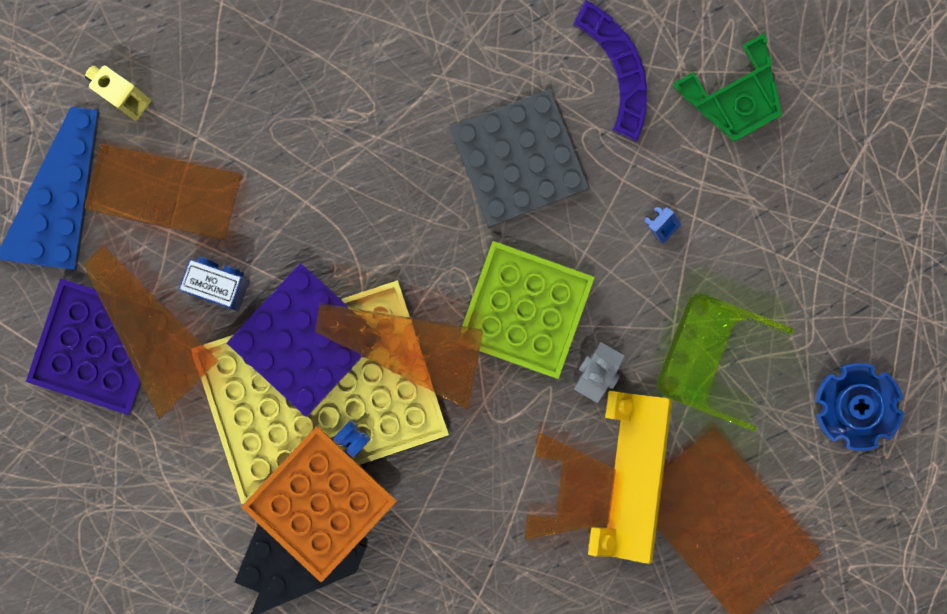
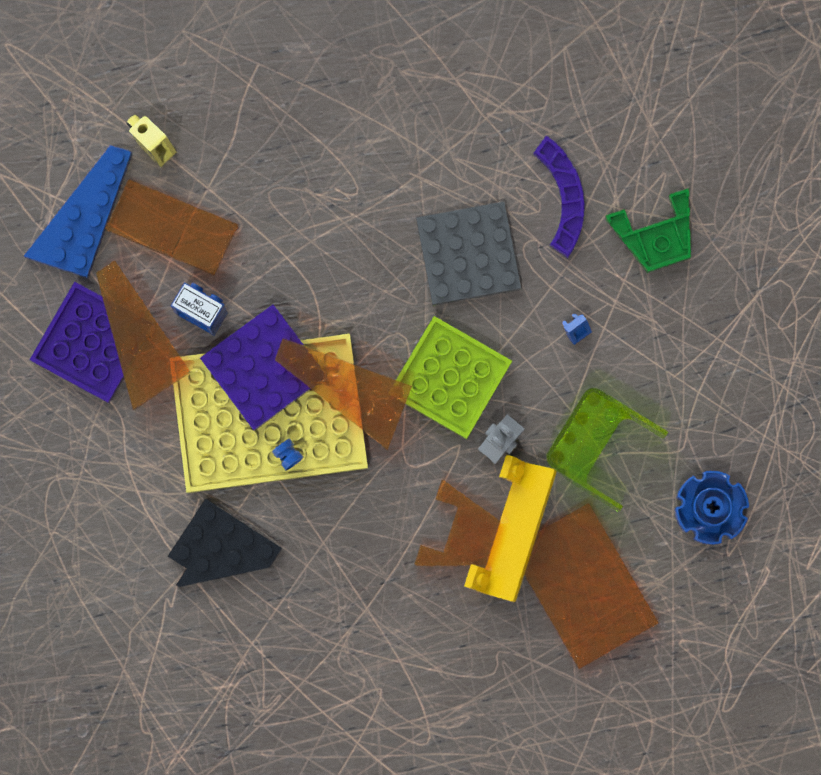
camera: 10 degrees right, 5 degrees down
(319, 503) = (250, 503): orange plate -> none

